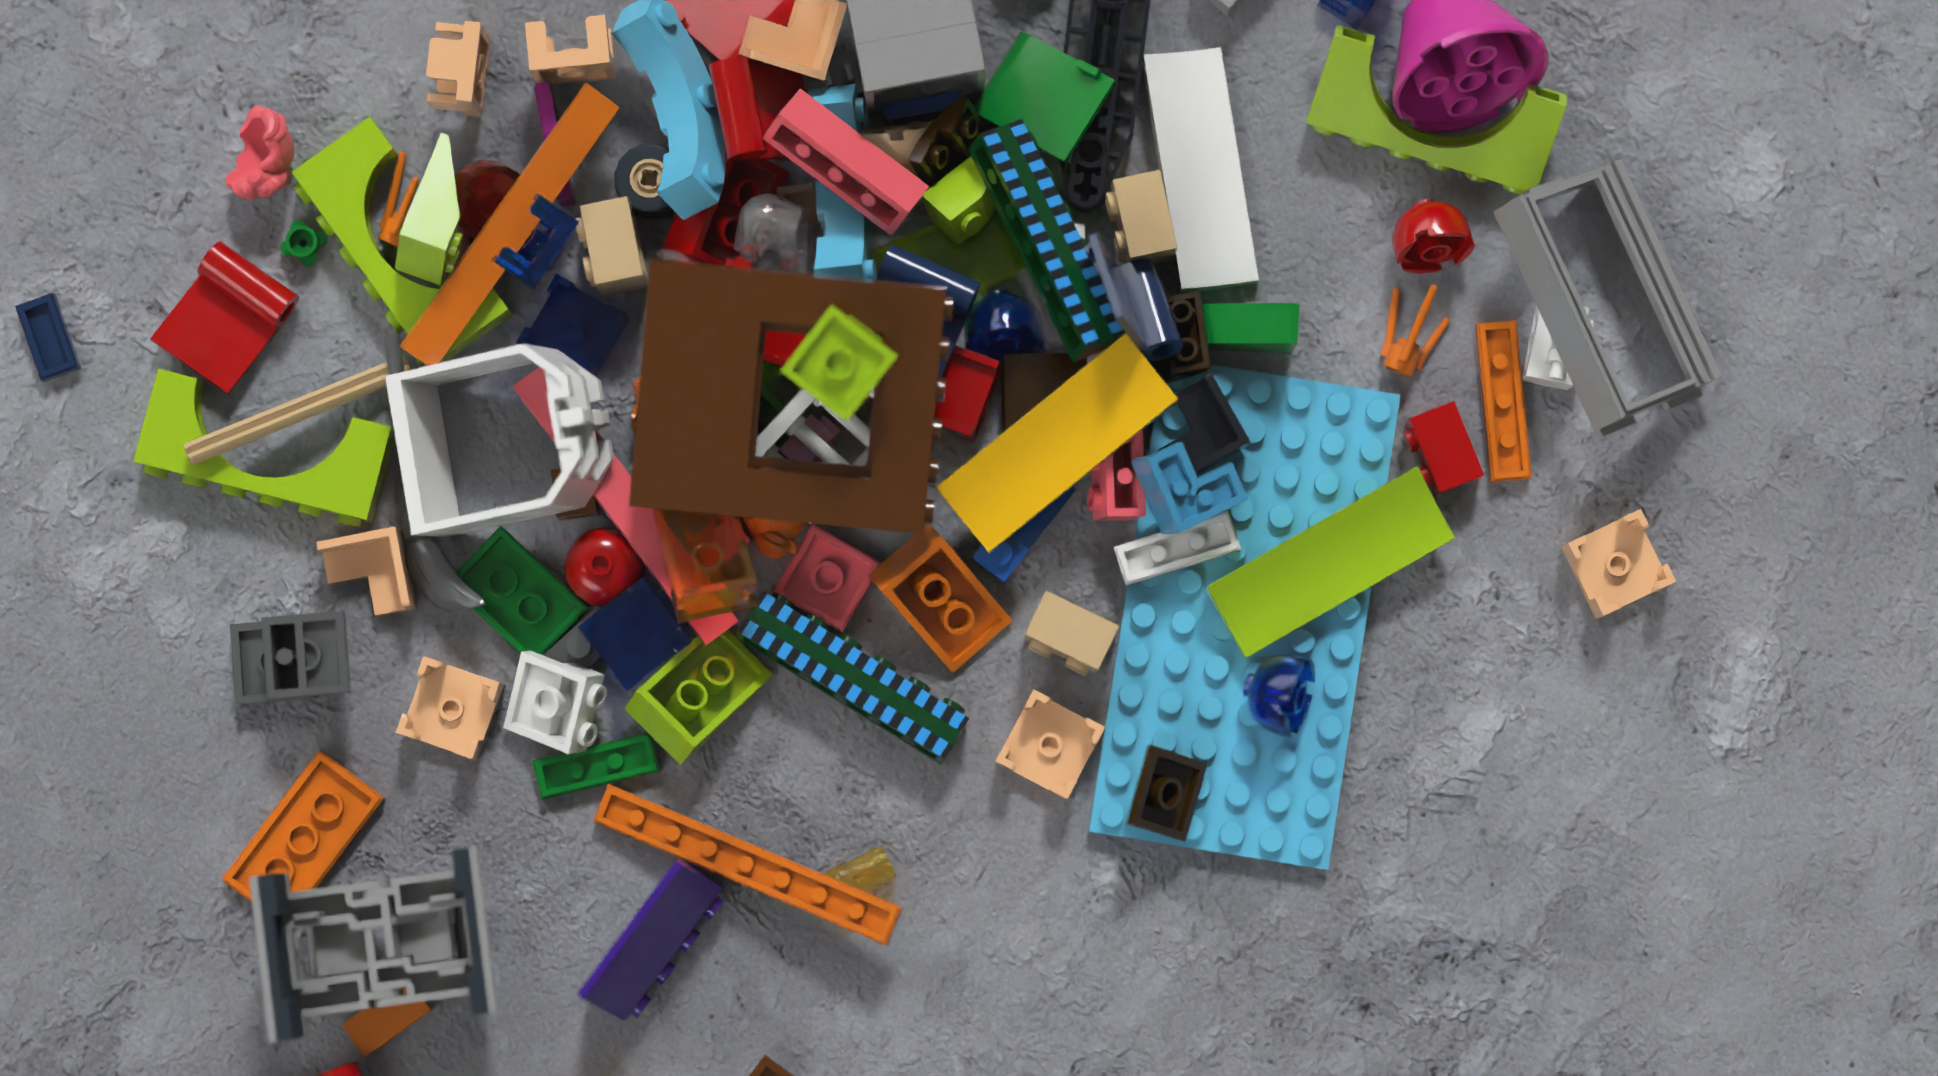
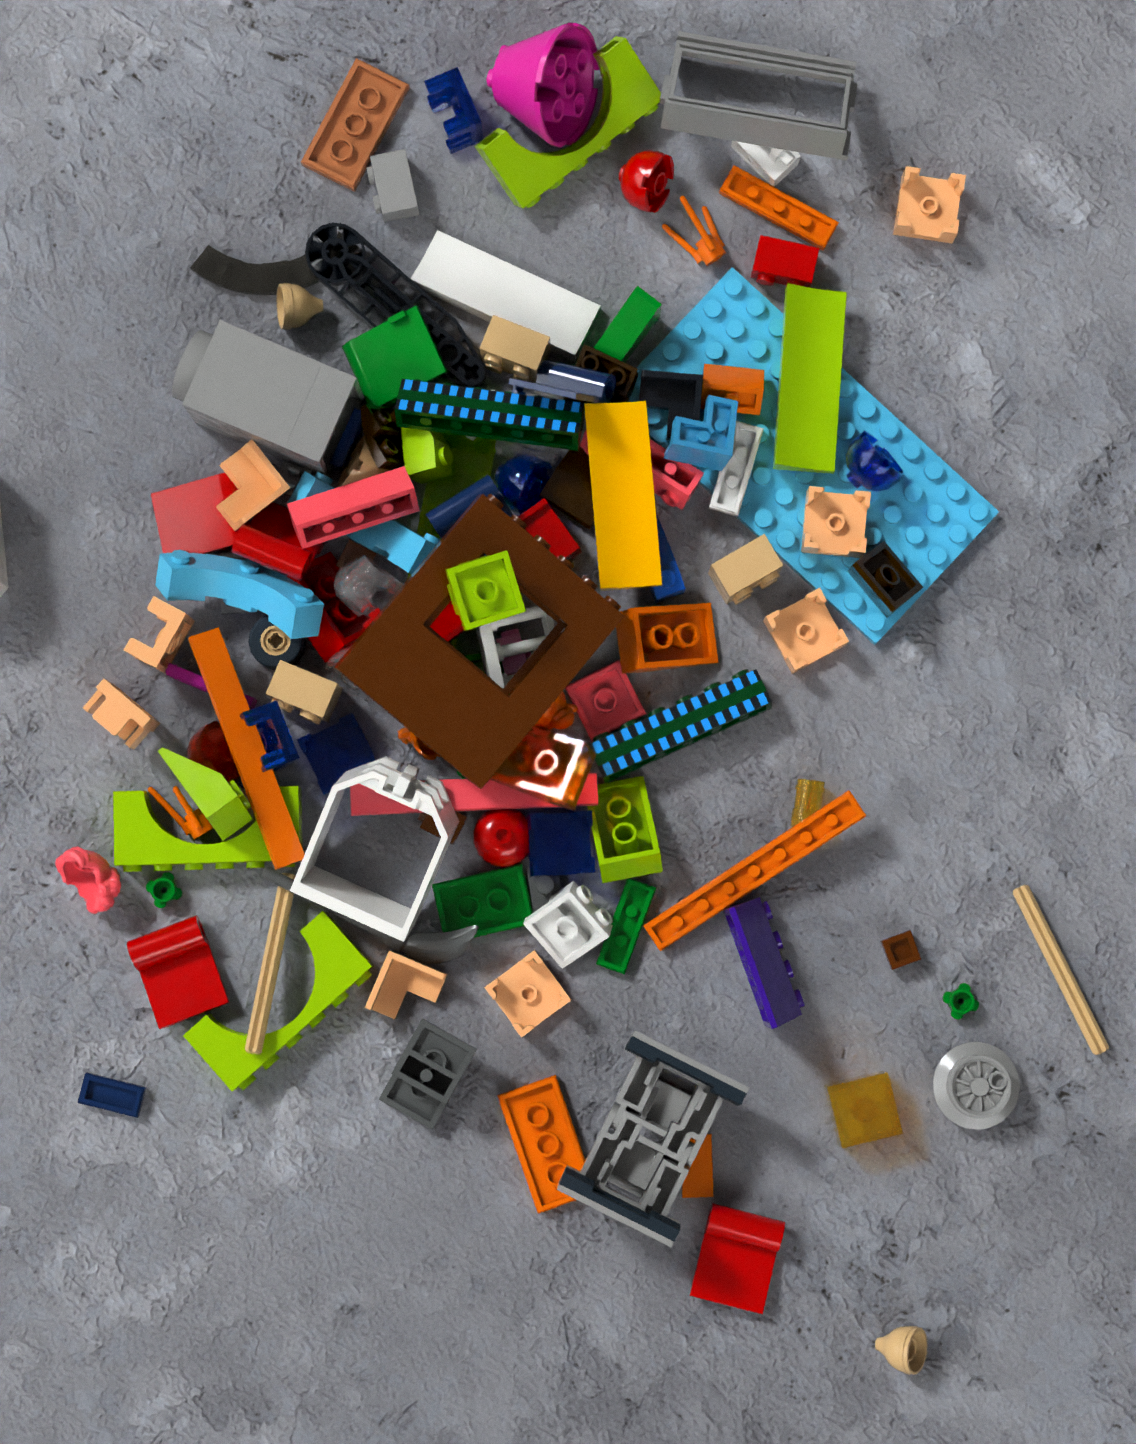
camera: 55 degrees left, 0 degrees up
(1189, 696) = (835, 523): none -> light nougat panel
(1267, 484) = (734, 383): none -> orange panel

